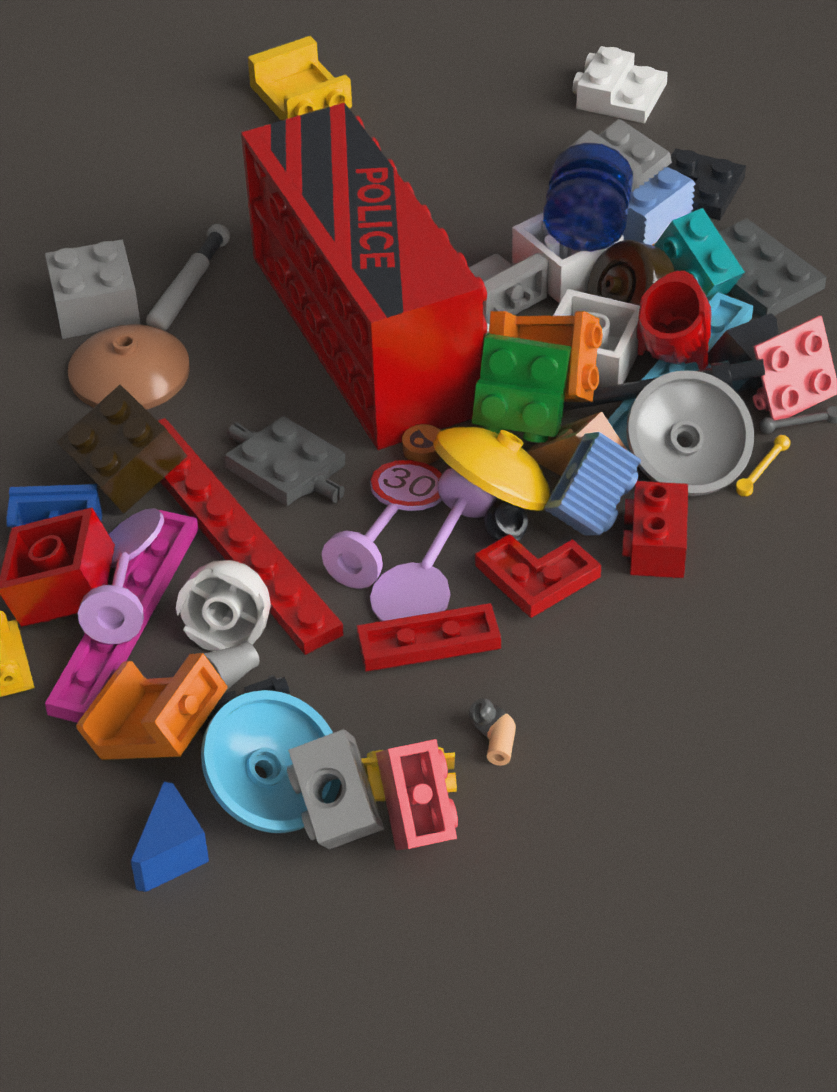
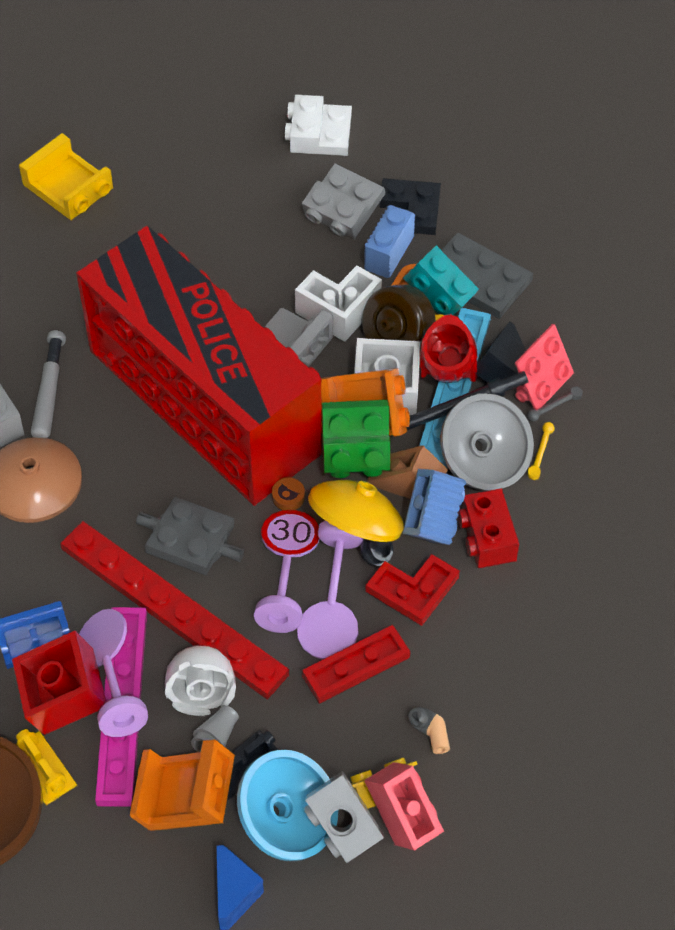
camera: 20 degrees left, 10 degrees up
(122, 448) = (66, 563): dark brown brick -> none
(588, 197) = (352, 258): clear blue wheel -> none

